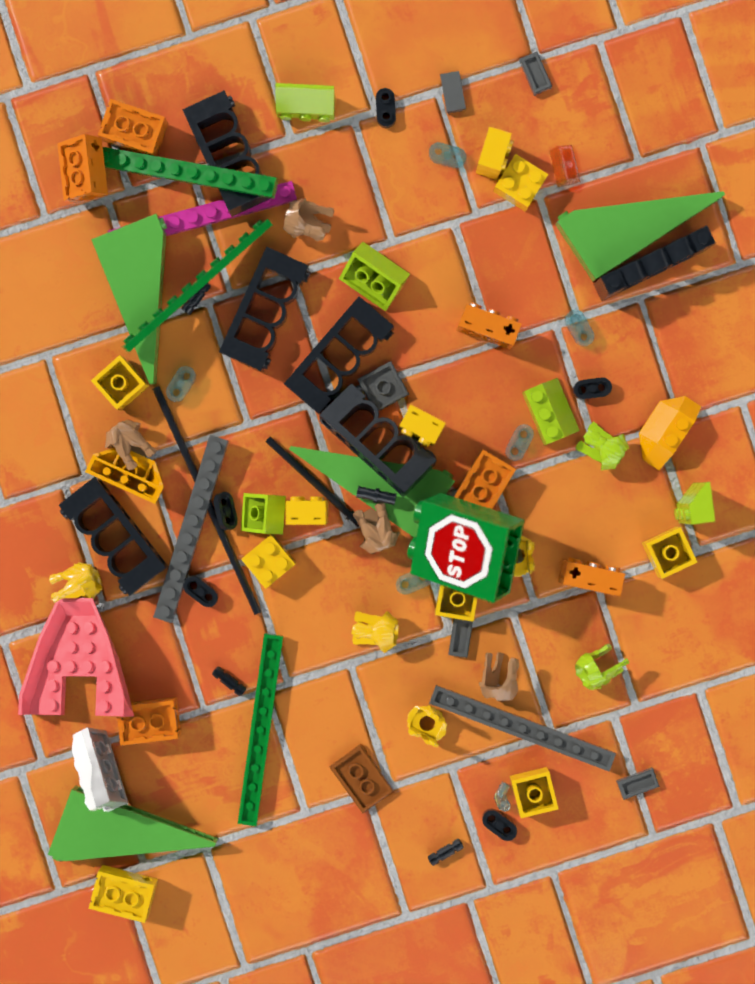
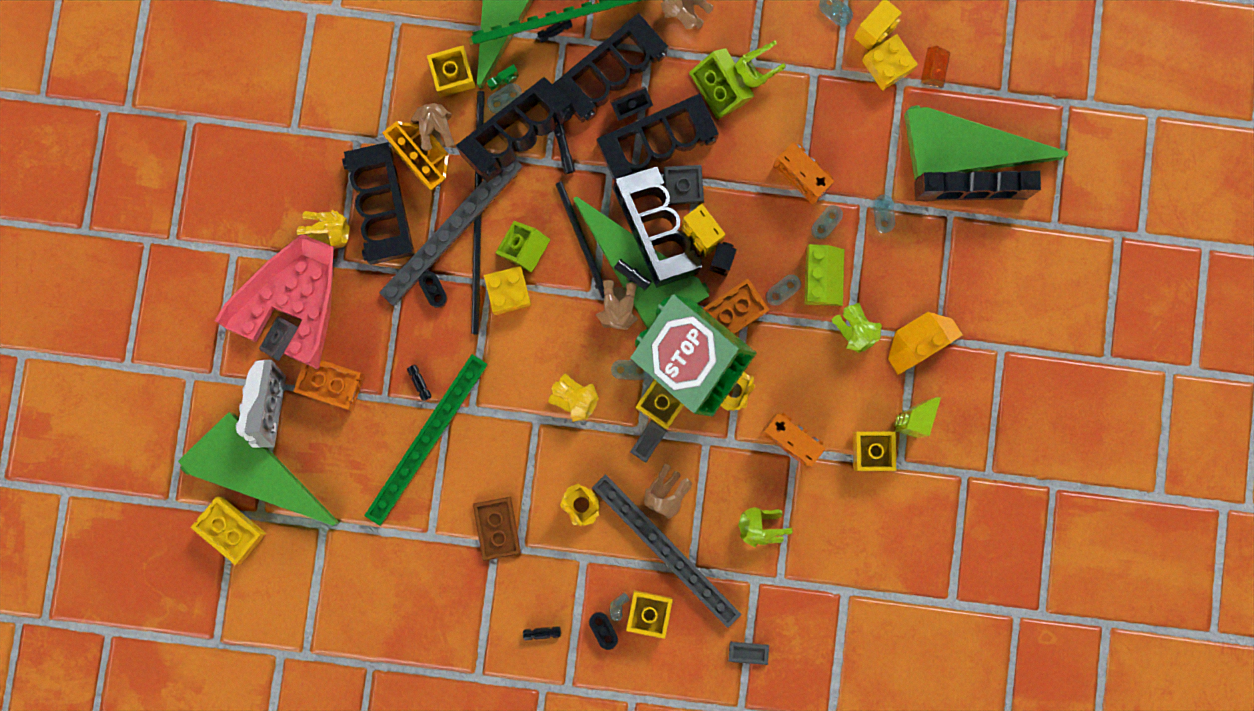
camera: 20 degrees right, 5 degrees down
(83, 702) = (278, 338): none -> dark grey tile
(174, 362) = (506, 76): none -> green plate
(212, 363) = (490, 165): none -> black fence
(225, 510) = (489, 228): black plate -> none
(262, 411) = (566, 158): none -> black piece
(300, 335) = (631, 103): none -> black brick
(307, 511) = (563, 259): yellow piece -> none
(396, 254) = (749, 72): none -> lime piece
(451, 440) = (723, 259): none -> black brick
(529, 360) = (826, 222): none -> clear light blue plate
(591, 388) = (870, 274): black plate -> none

